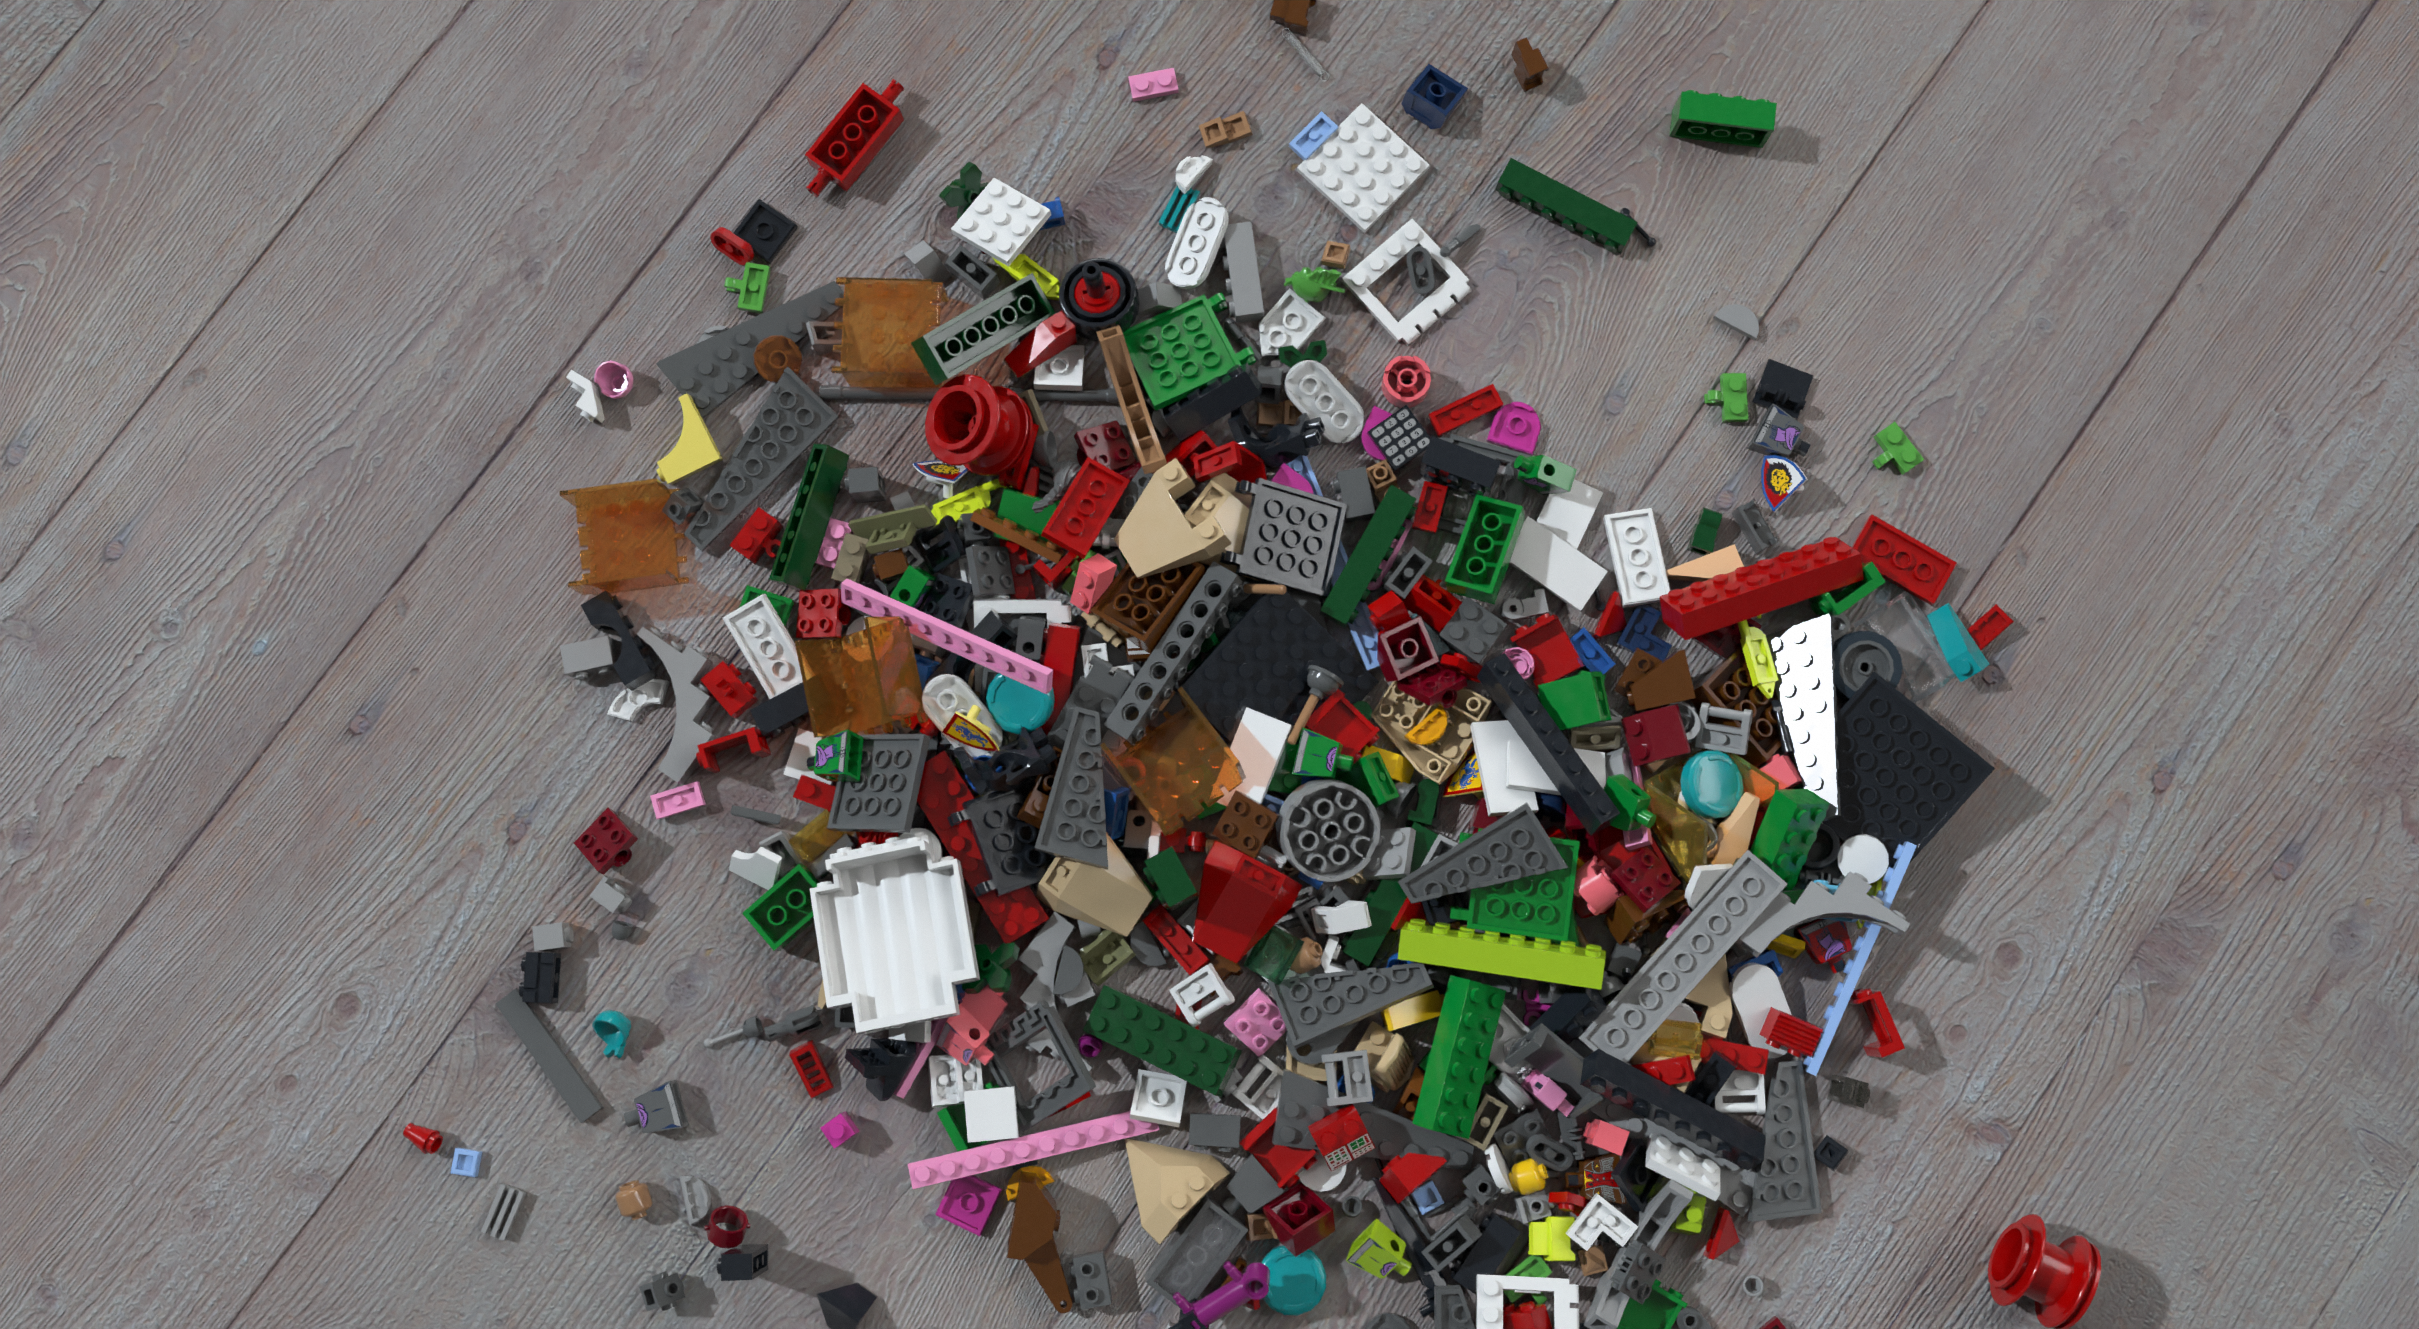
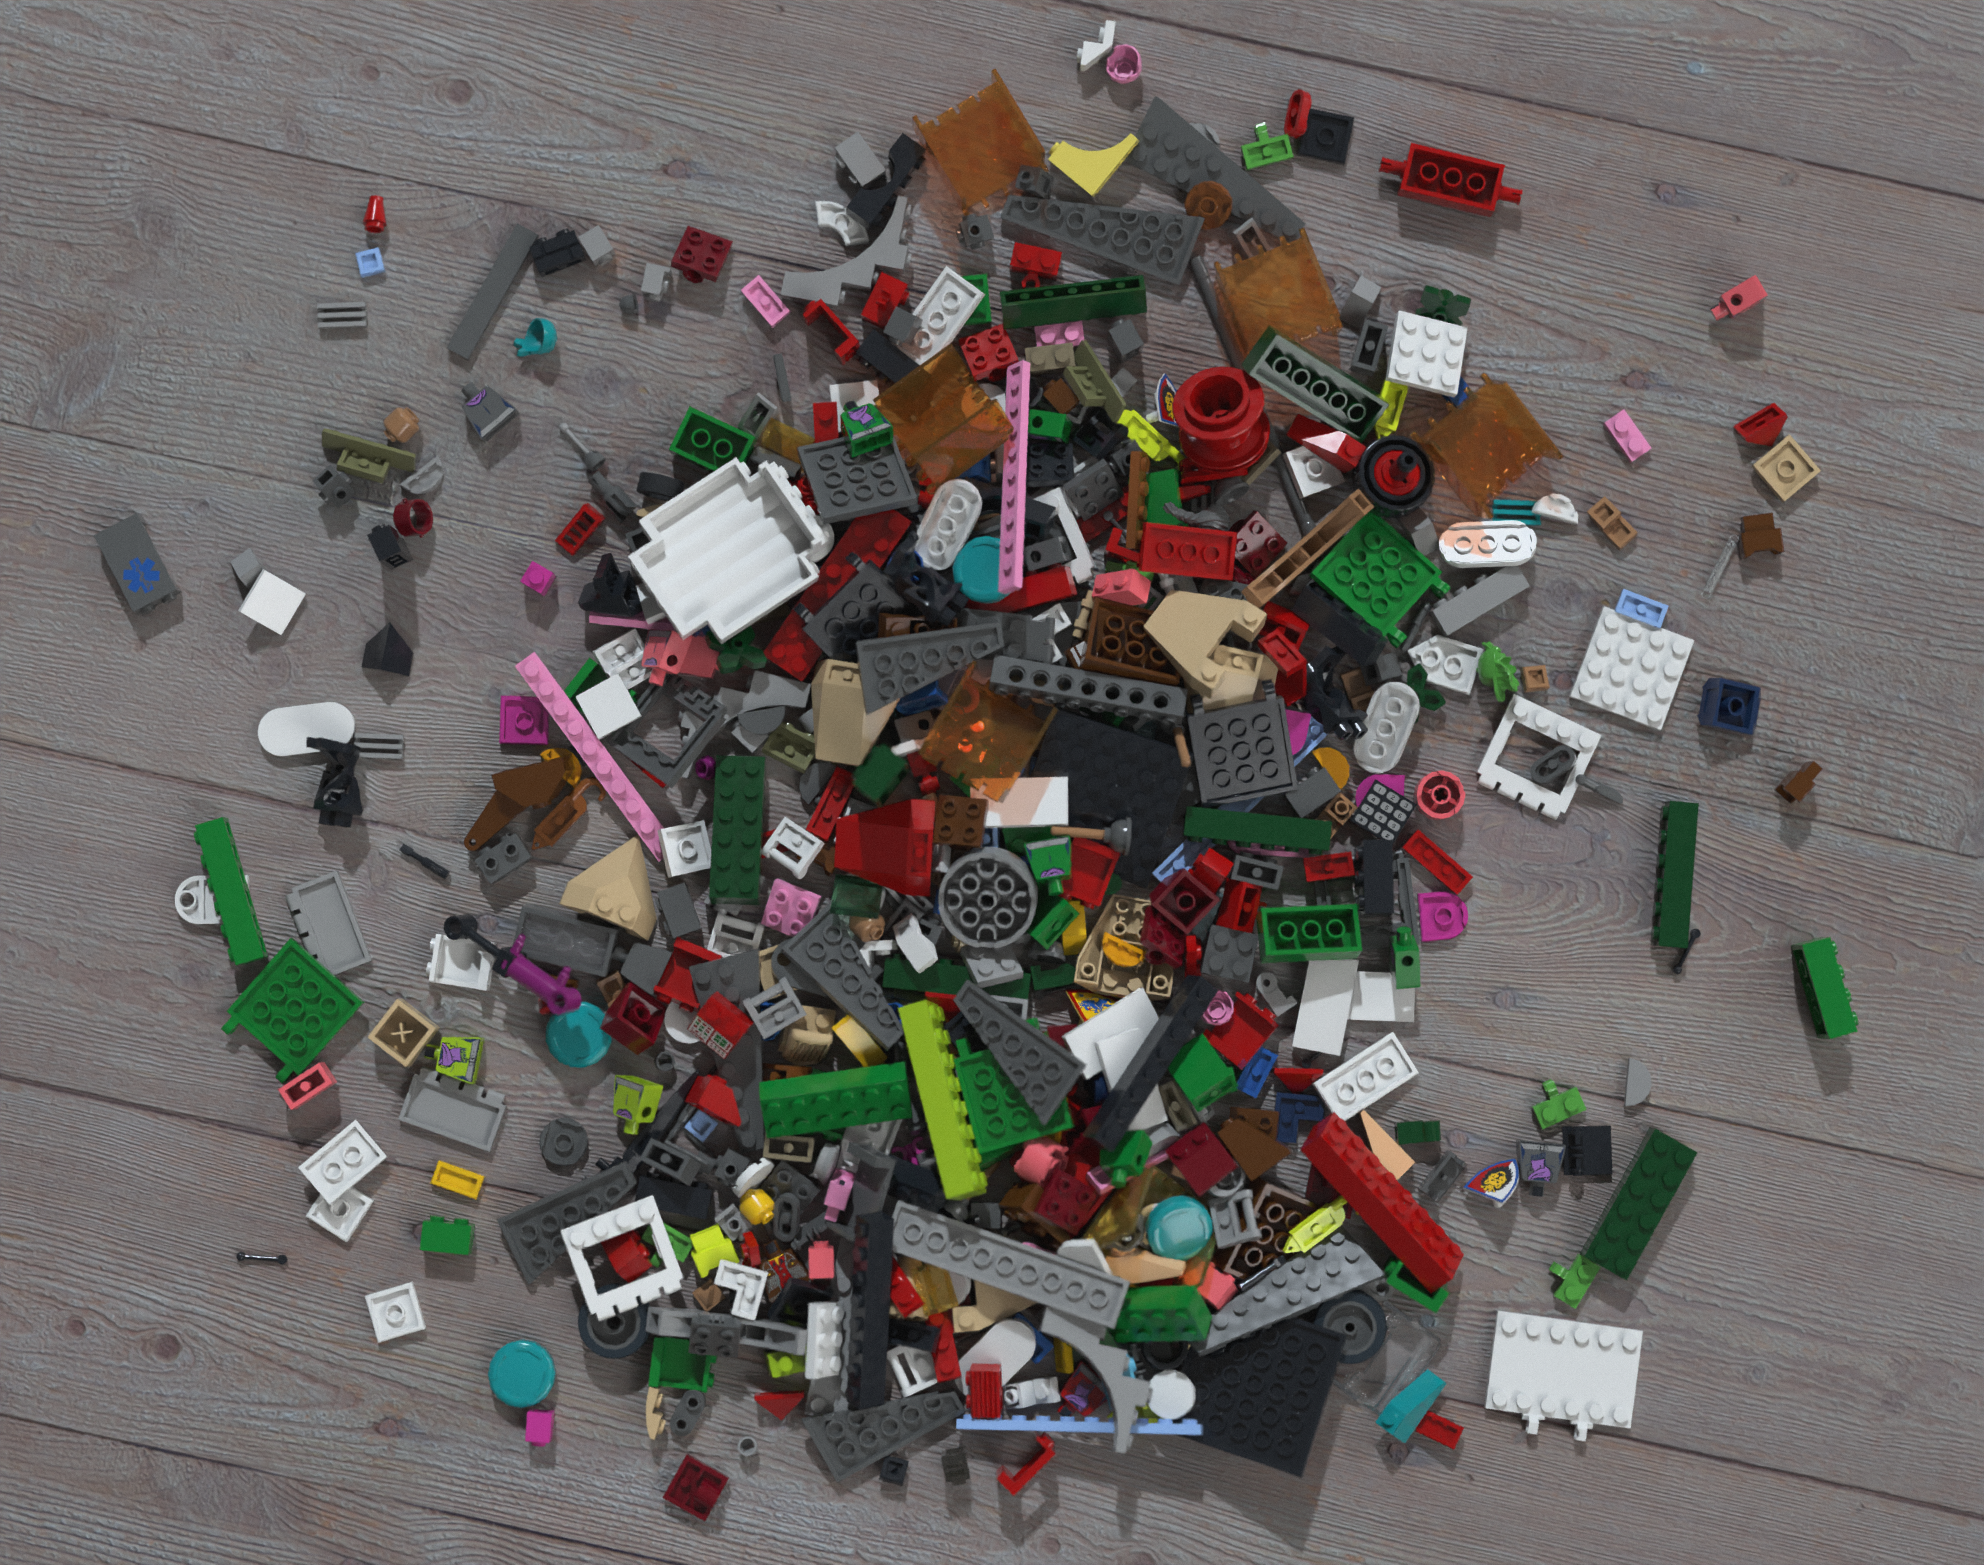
camera: 60 degrees right, 5 degrees up
(649, 1247) = (366, 457): none -> olive bracket
(702, 570) = (983, 229): none -> dark grey brick
(757, 867) = (736, 401): white tile -> none
(759, 682) = (902, 327): none -> dark grey brick
(804, 975) = (659, 486): none -> black tyre
(970, 731) = (937, 538): shield -> none
(1075, 1201) = (565, 814): none -> dark orange plate
(1105, 204) = (1485, 443): none -> clear orange windscreen
(1334, 463) = (1334, 763): none -> light orange tile
(1805, 990) = (1031, 1392): none -> white slope
(1850, 363) = (1638, 1203): none -> dark green brick
(1903, 559) = (1469, 1324): red plate -> none
(1977, 494) = (1563, 1371): none -> white hinge

